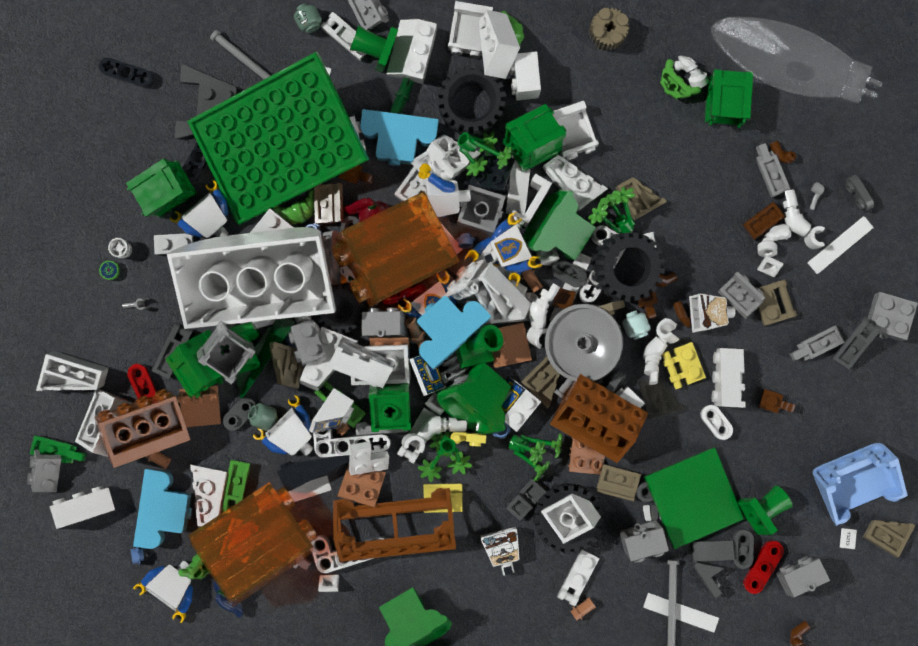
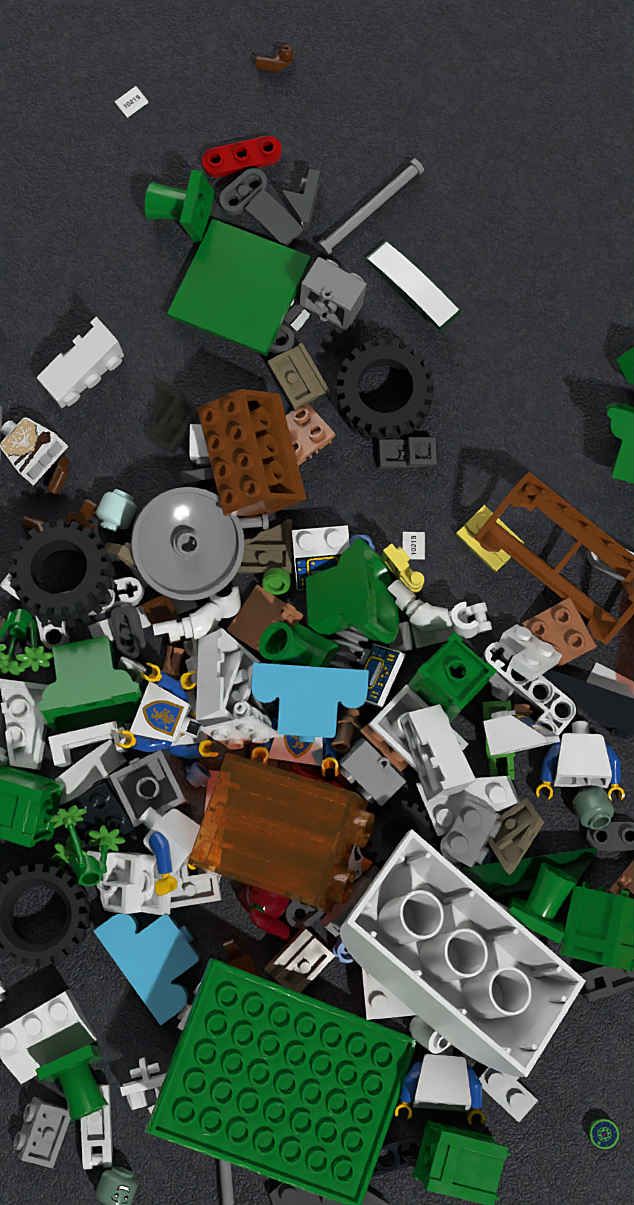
camera: 130 degrees left, 5 degrees down
(116, 249) = (573, 1148): white wheel -> none
(139, 304) = (607, 1063): light grey hand -> none
(228, 363) = (578, 893): light grey container -> none
(233, 229) = (427, 1036): none -> white brick
(298, 211) = (339, 987): bright green piece -> none
(345, 70) = (135, 1090): none -> white hips
(402, 96) = (105, 997): dark green axle -> none
(445, 447) = (436, 579): bright green plant -> none
(477, 457) = (414, 544): none -> white sticker
(502, 548) = (480, 428): torso -> none
(520, 445) = (358, 511): plant -> none
(524, 370) = (276, 581): none -> bright green tile
(571, 517) = (381, 382): white slope -> none
(578, 577) = (420, 331): white plate -> none
(582, 609) = (461, 291): nougat pin -> none
(609, 587) = (413, 285): none -> white slope
(655, 348) = (119, 468): white piece -> none
(683, 613) = (365, 191): white sticker -> none
(688, 362) = (104, 421): light yellow plate -> none
(716, 422) = (138, 337): white plate -> none
(773, 402) = (62, 300): reddish brown plate -> none
(798, 577) = (213, 107): light grey brick -> none
(859, 479) = (60, 144): light blue windscreen -> none
(889, 535) = (89, 64): dark tan wing -> none

